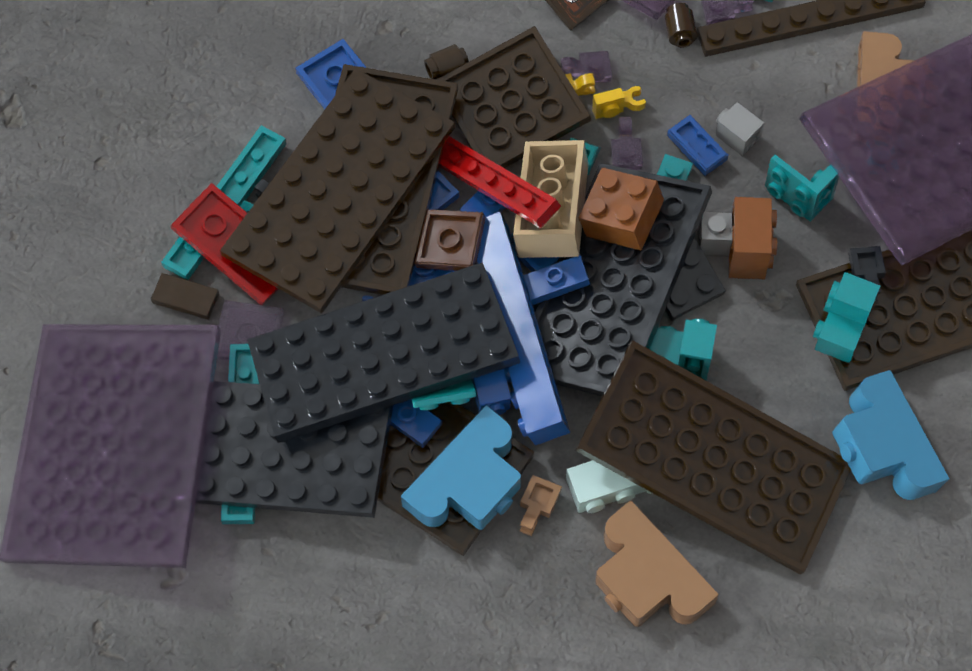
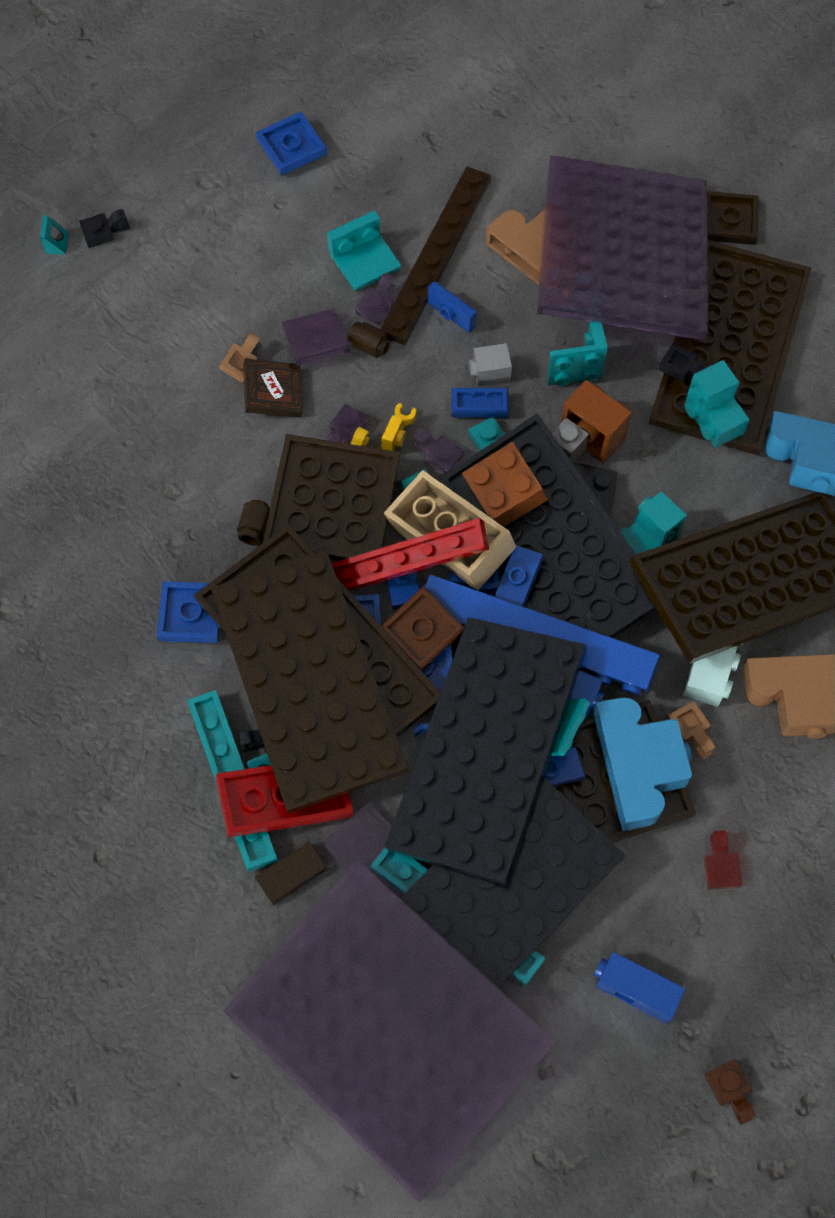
camera: 55 degrees left, 0 degrees up
(282, 606) = (639, 987): none -> blue brick
(435, 606) = (722, 868): none -> clear red plate
(766, 62) = (451, 307): none -> blue plate

